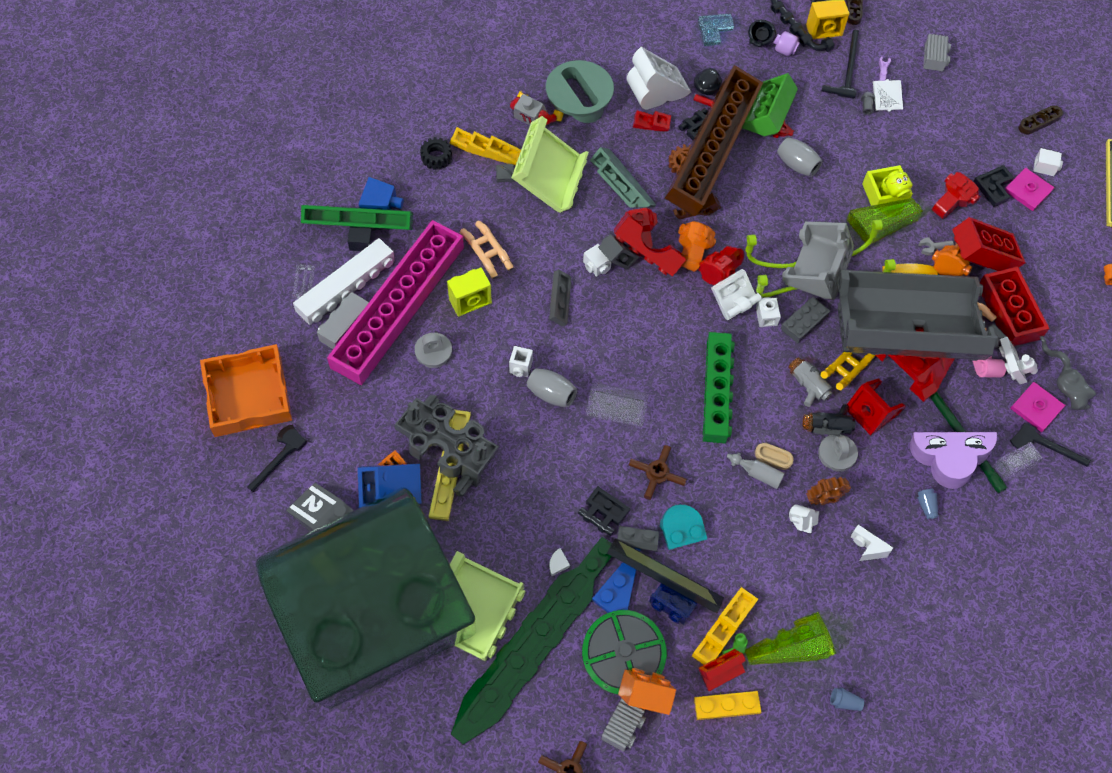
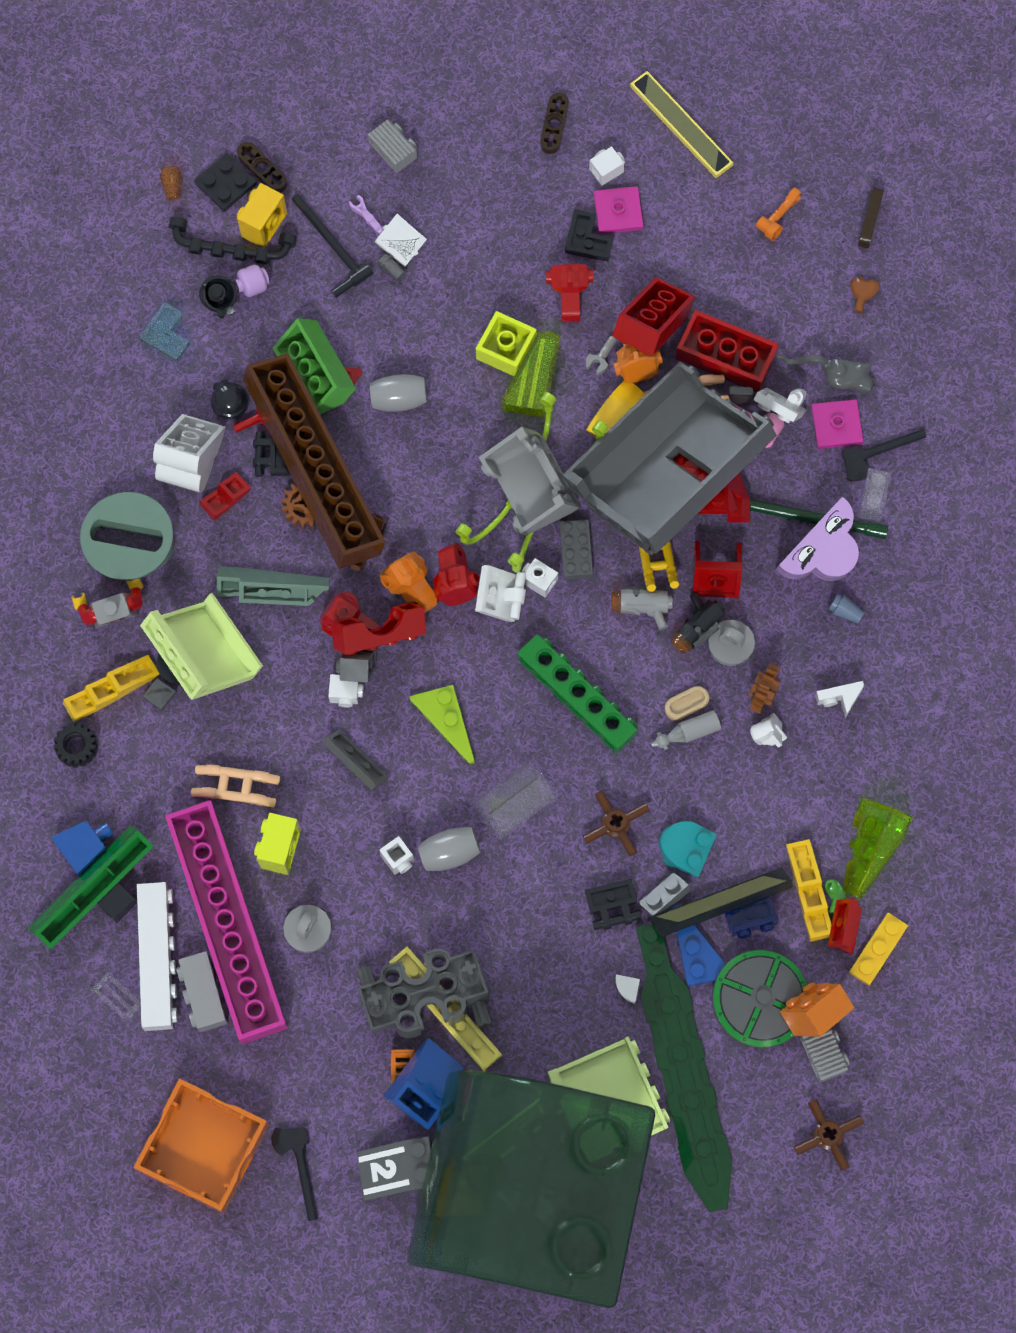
camera: 45 degrees left, 10 degrees up
(634, 325) = (443, 711): none -> lime wing
(846, 700) = (955, 844): sand blue cone -> none
(898, 184) = (519, 335): neon yellow head -> none

